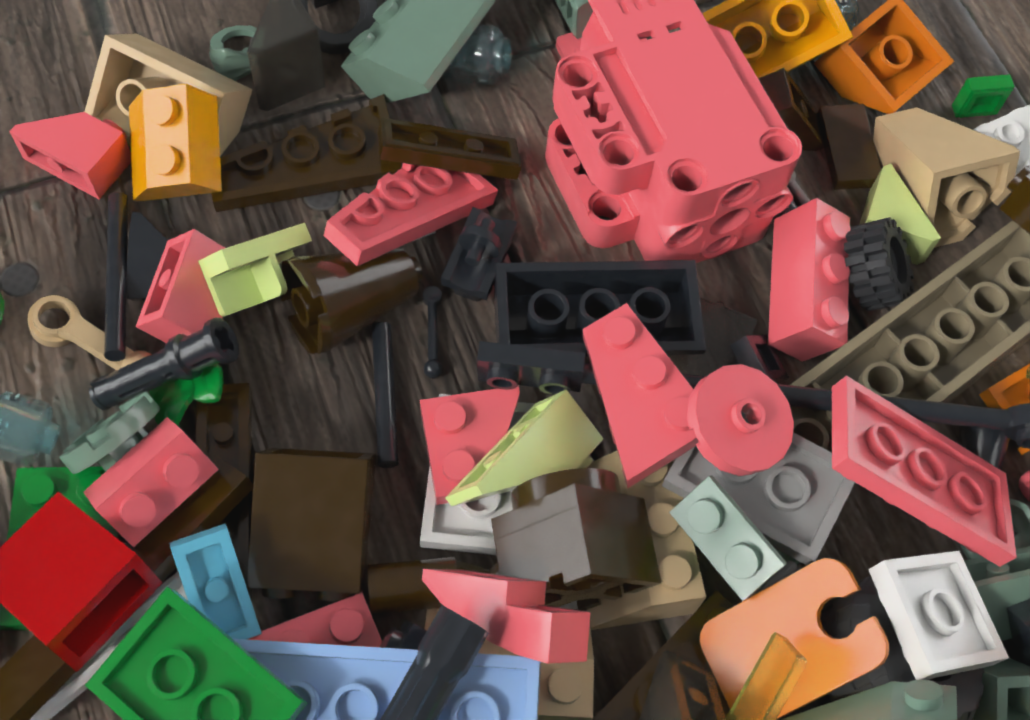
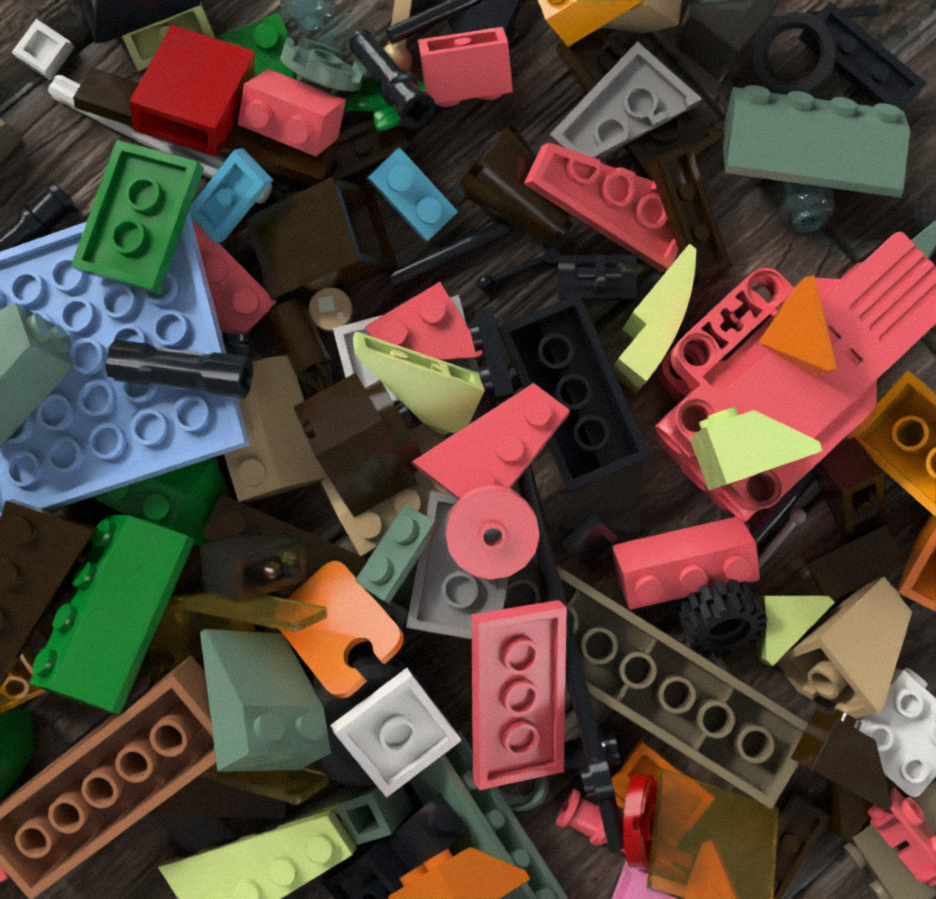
camera: 75 degrees right, 20 degrees up
(251, 270) = (499, 101): yellowish green panel -> none
(303, 402) = (412, 194): none -> medium azure plate
(311, 158) = (625, 105): none -> light grey wing
(393, 539) = (330, 309): none -> tan tile
(513, 613) = (277, 410): coral slope -> none
(551, 205) = (656, 322): none -> yellowish green slope
(637, 47) = (801, 331): none -> orange slope
(749, 124) = (745, 445): none -> yellowish green slope

